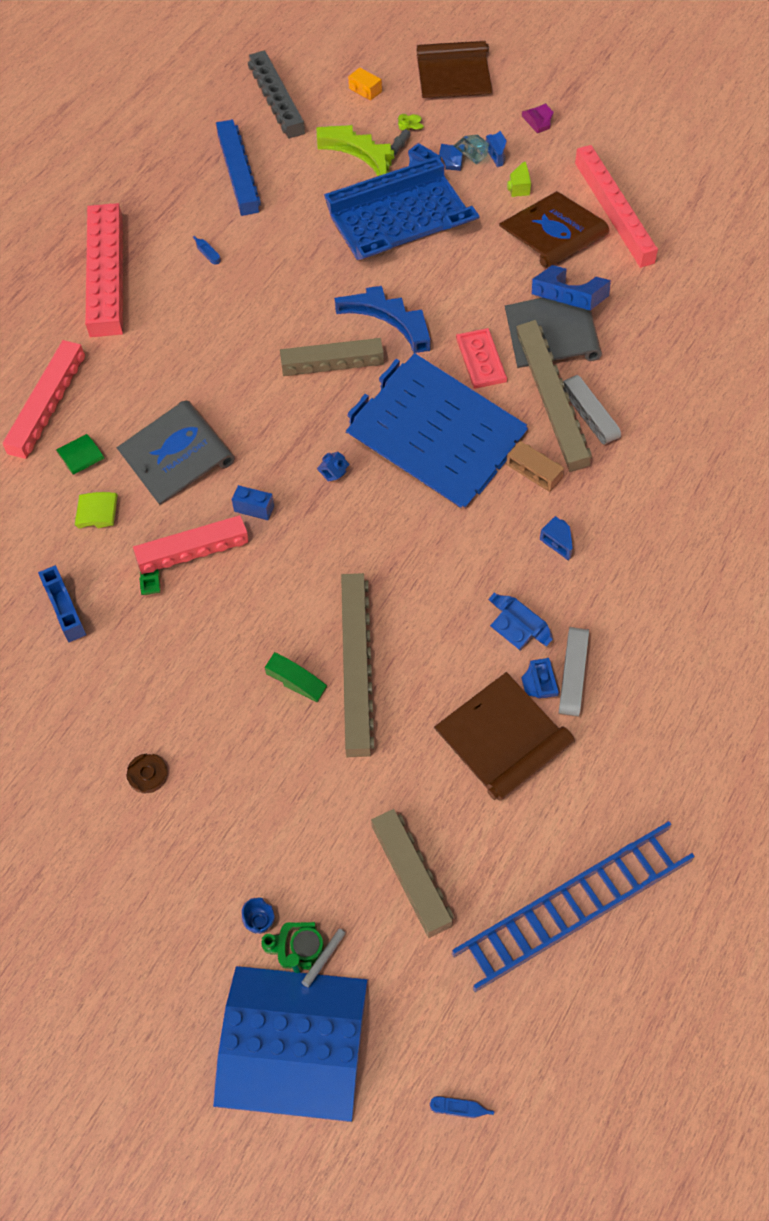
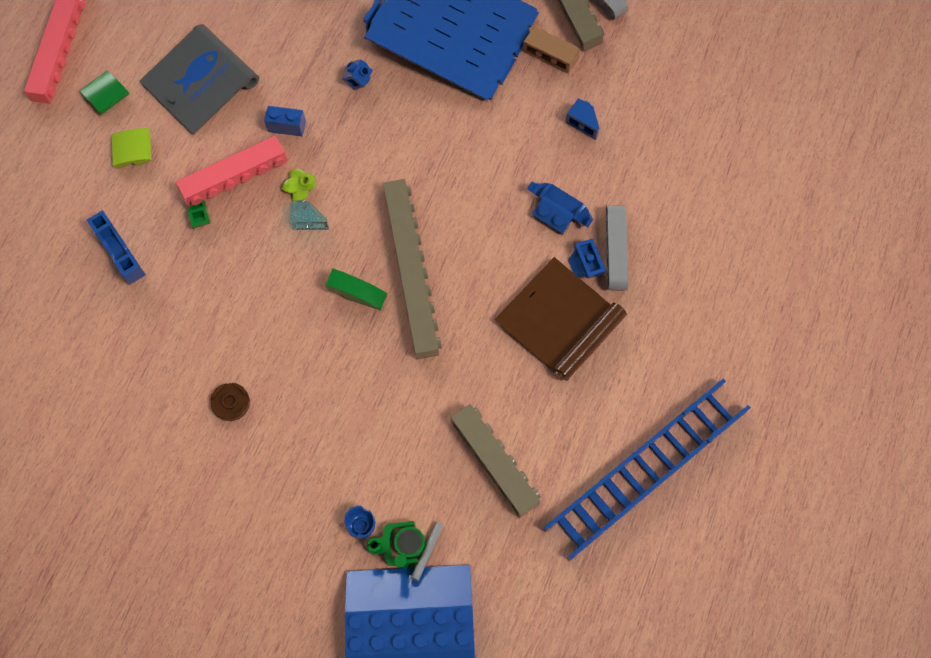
camera: 10 degrees left, 10 degrees up
(255, 568) = (297, 184): none -> lime plate
(257, 598) = (306, 217): none -> clear light blue slope

